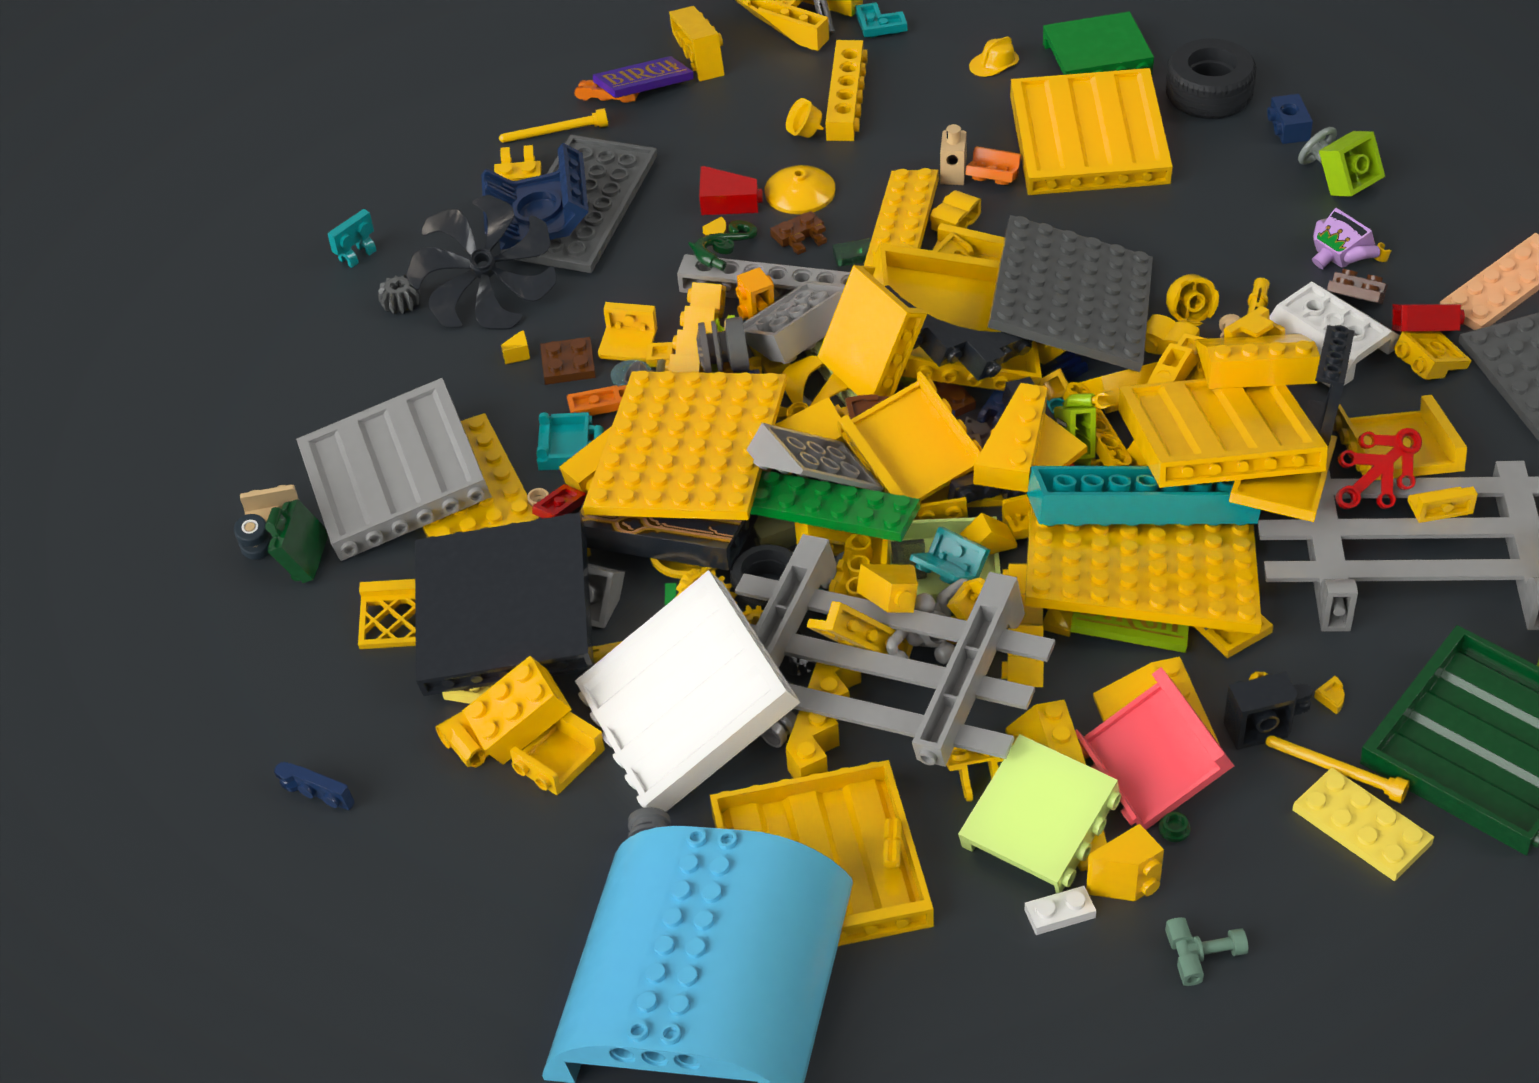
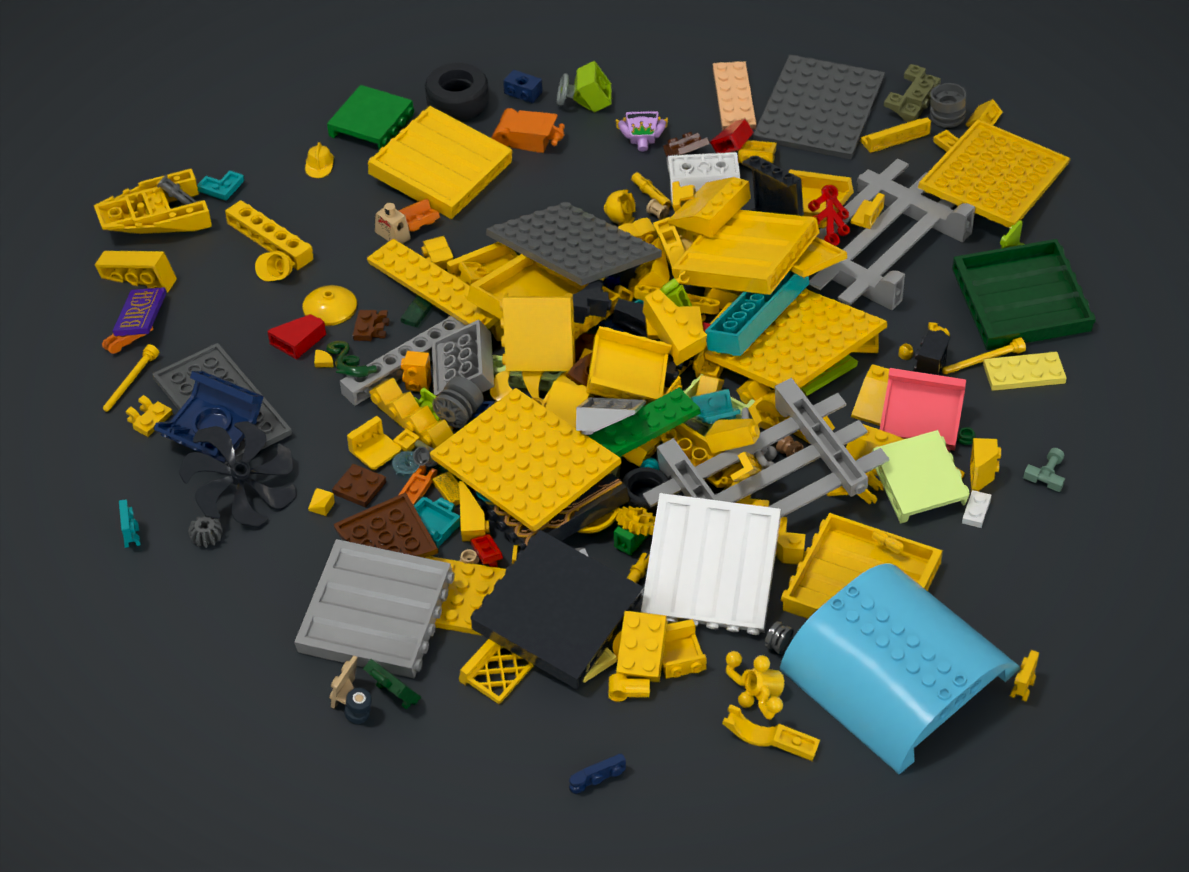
camera: 55 degrees left, 0 degrees up
(495, 911) = (778, 736): none -> yellow piece
(505, 413) = (389, 526): none -> reddish brown plate
(554, 851) = (759, 683): none -> yellow wheel
(1221, 161) = (528, 130): none -> orange piece

